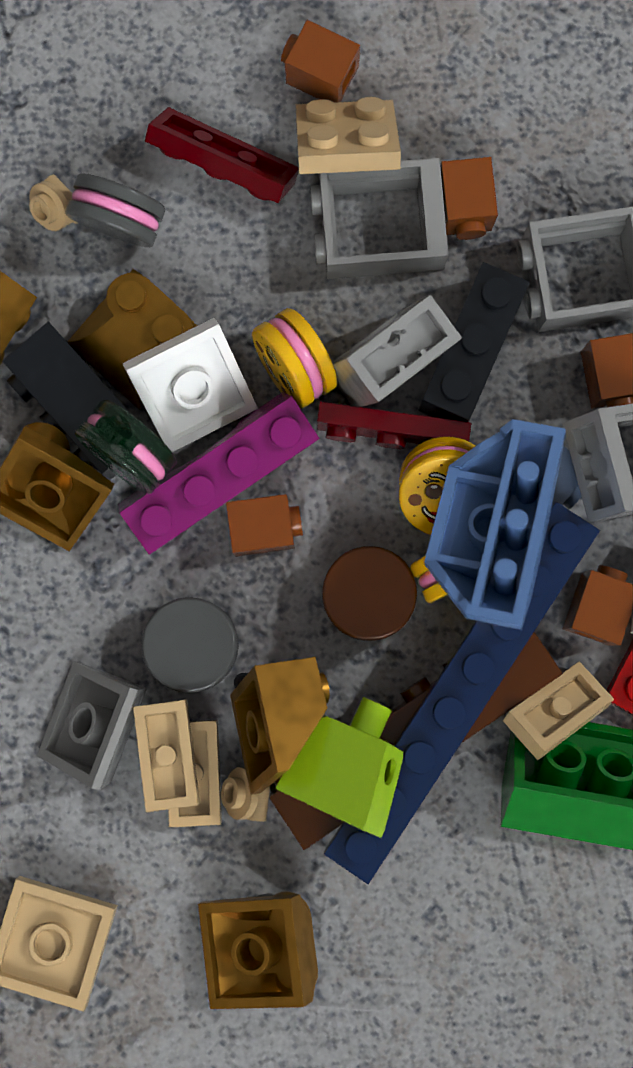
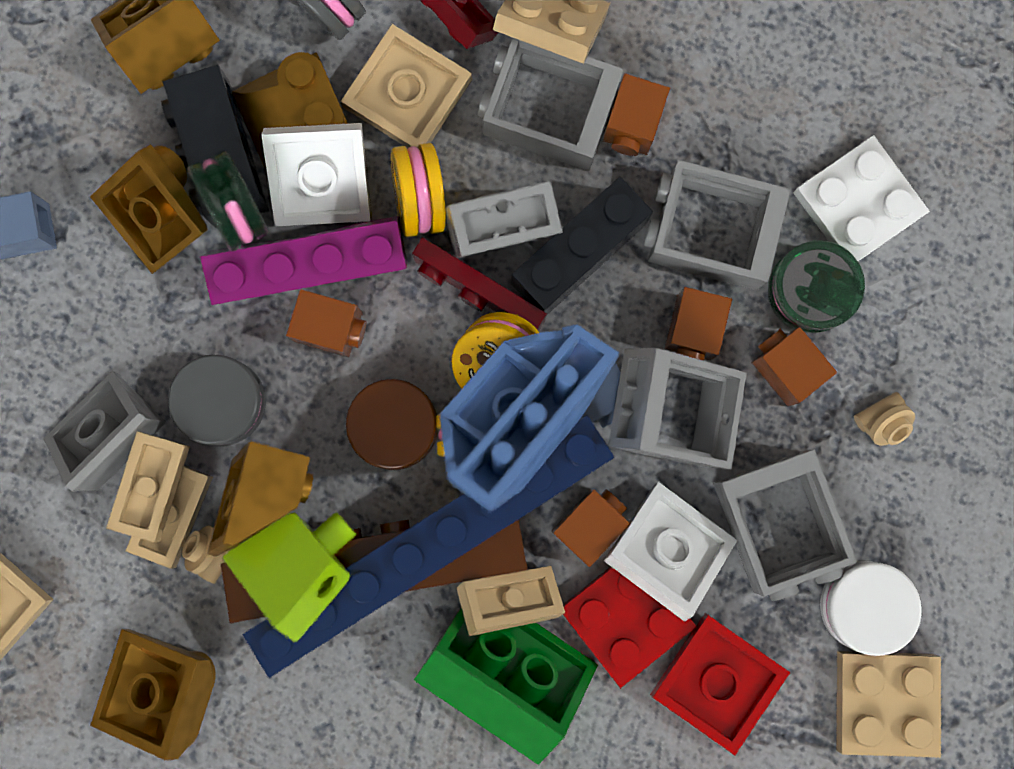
camera: 20 degrees right, 0 degrees up
(236, 267) = (406, 89): none -> tan plate

